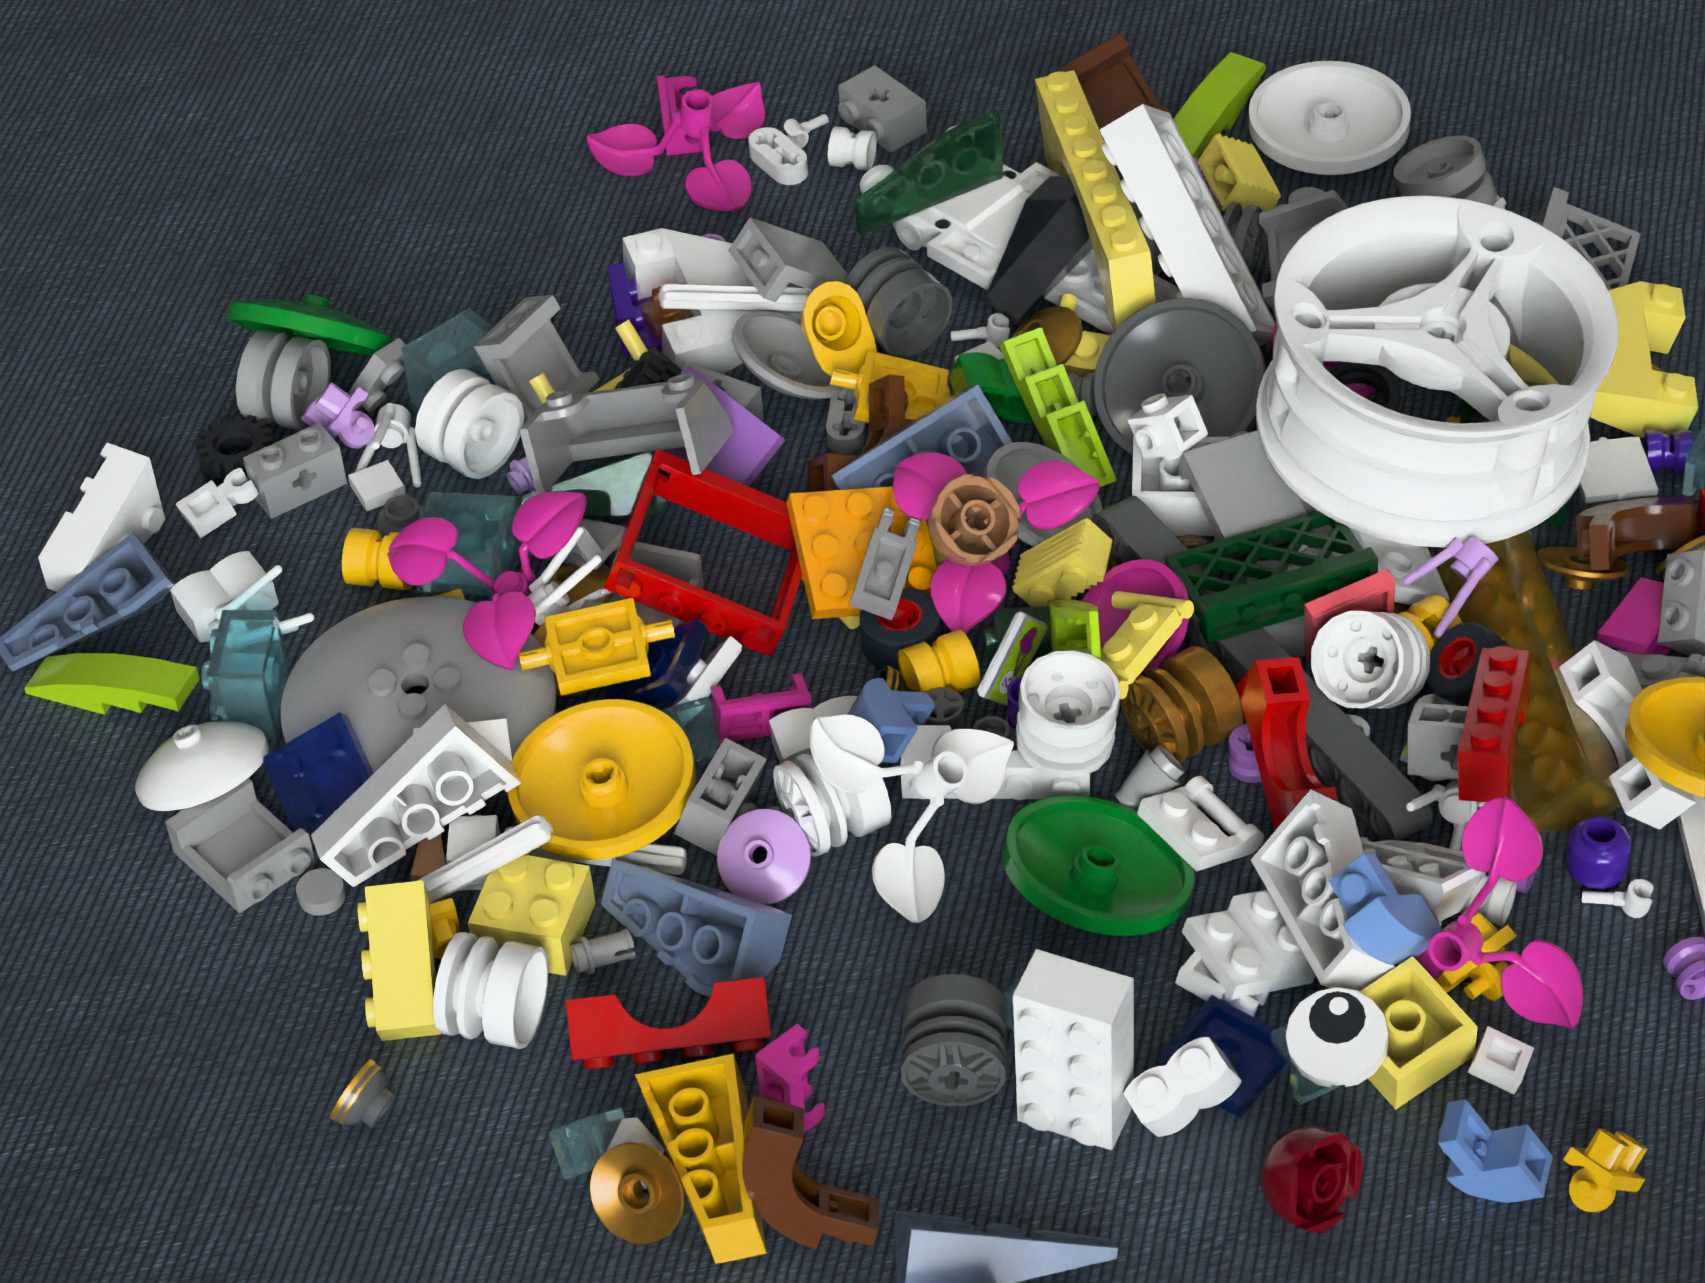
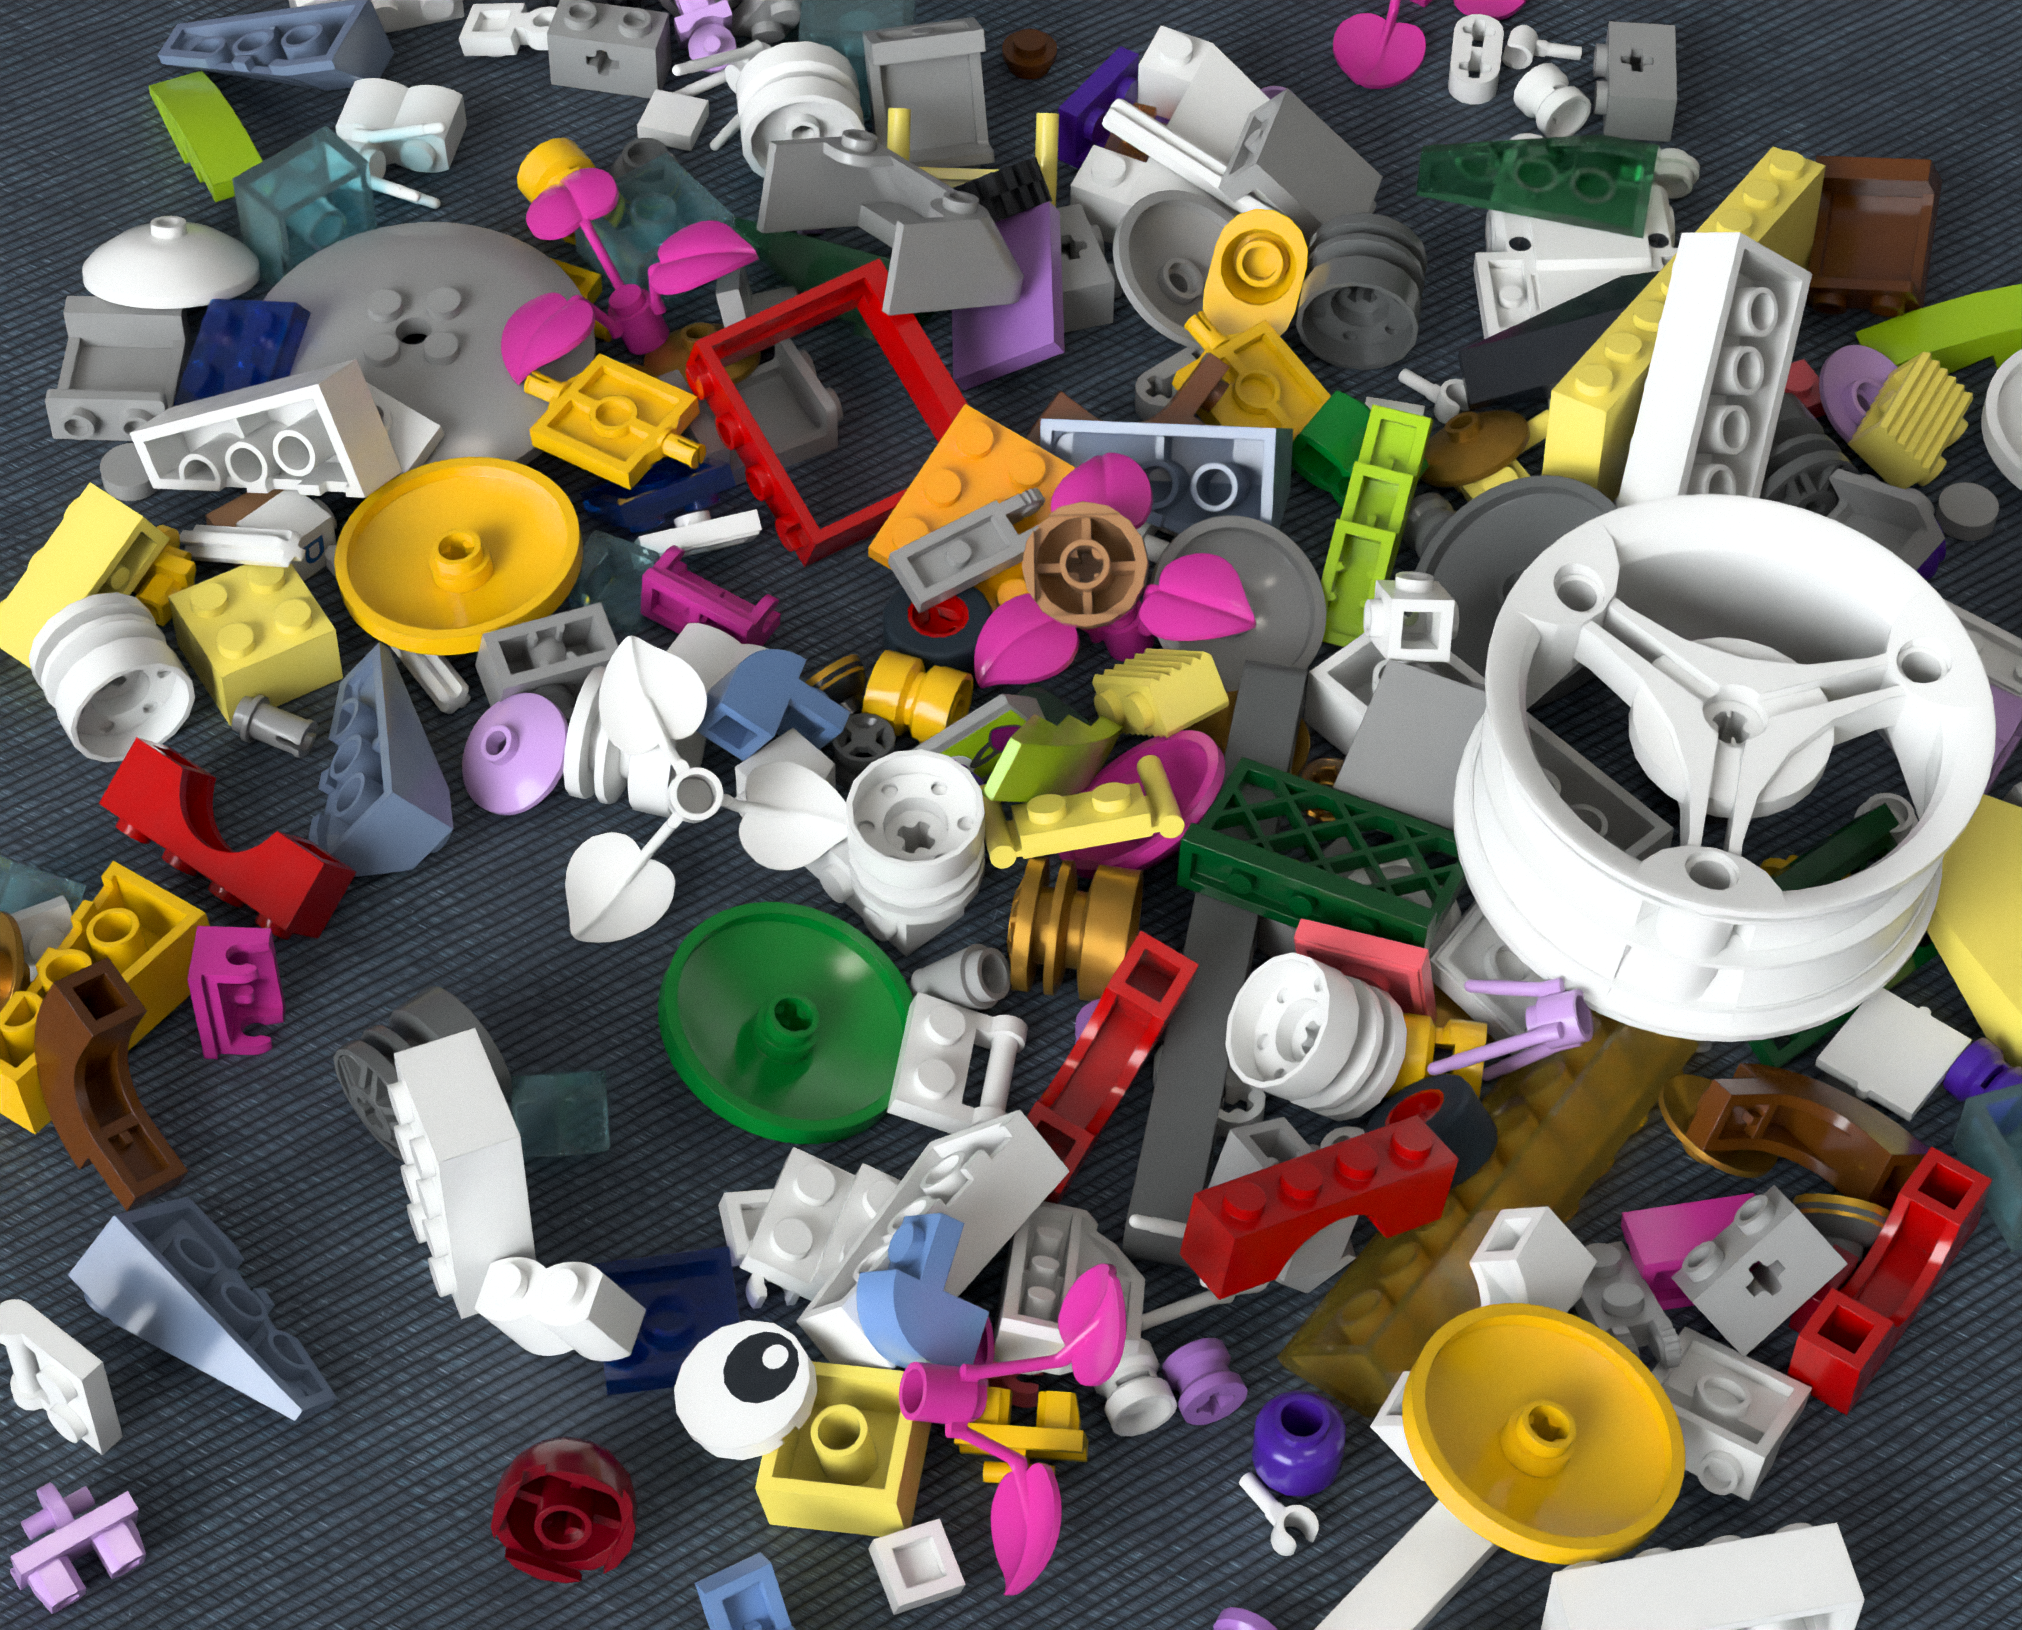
camera: 40 degrees right, 5 degrees up
(552, 597) = (650, 341): white plant -> none

